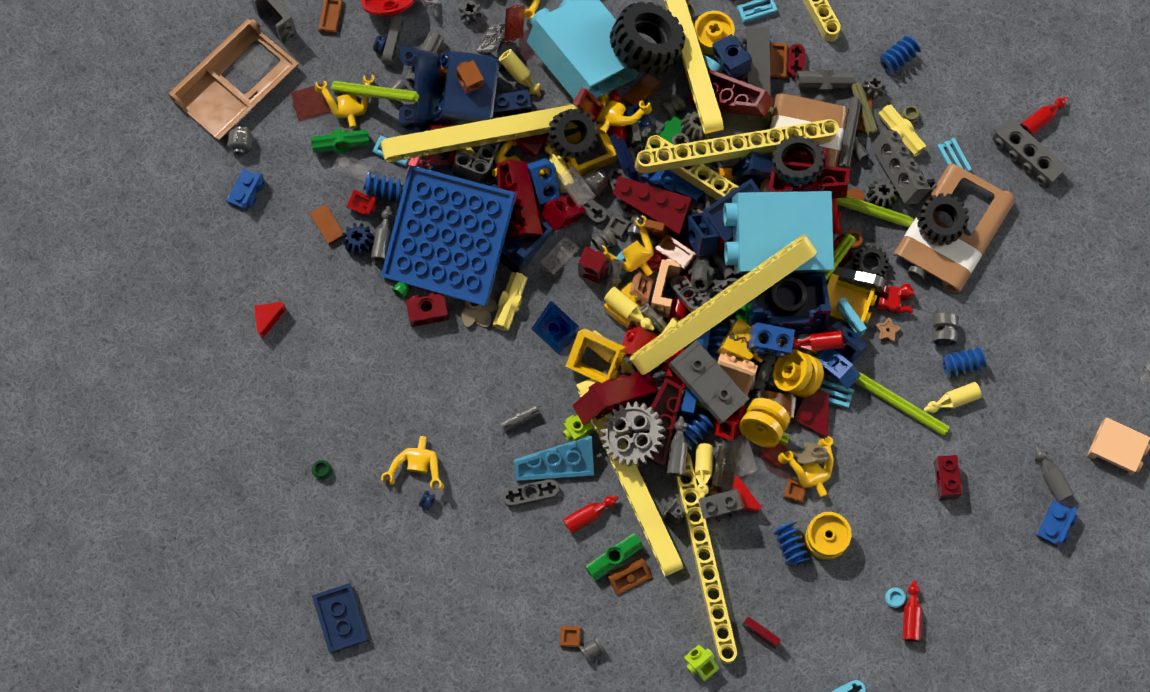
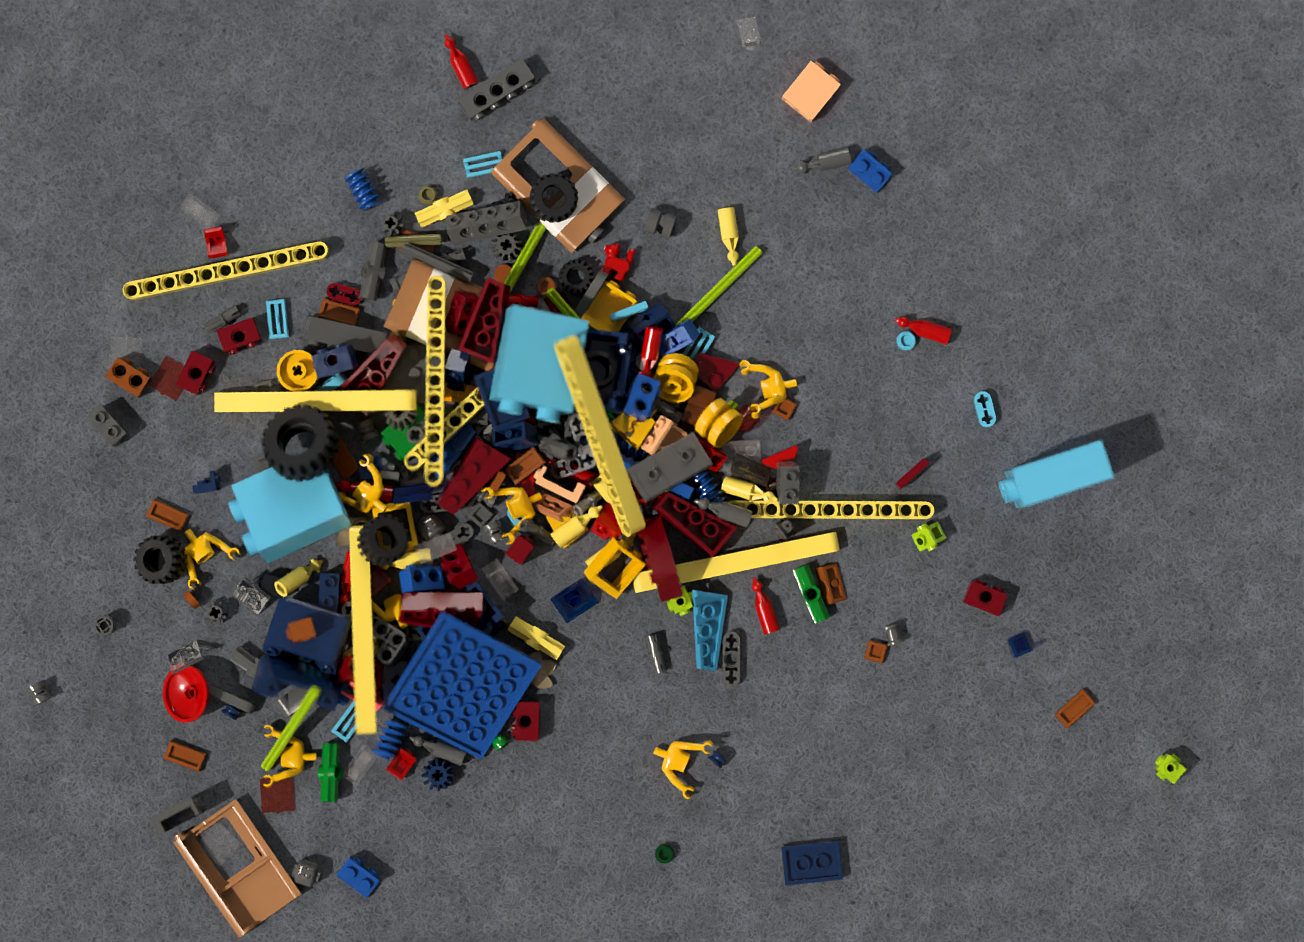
camera: 80 degrees left, 15 degrees up
(267, 316) = (499, 878): red slope -> none
(327, 224) = (414, 802): dark orange tile -> none
(514, 22) = (243, 571): clear red piece -> none
(587, 102) = (357, 518): dark red tile -> none
(634, 451) = (720, 552): light grey gear -> none
(790, 544) = (837, 425): blue piece -> none
(798, 144) = (449, 320): black tyre -> none
(811, 454) = (755, 385): dark tan plate -> none
(824, 547) = (825, 389): yellow wheel -> none
(887, 325) = (646, 273): medium nougat plate -> none
(947, 477) = (805, 261): dark red brick -> none
(963, 361) = (696, 215): blue piece -> none

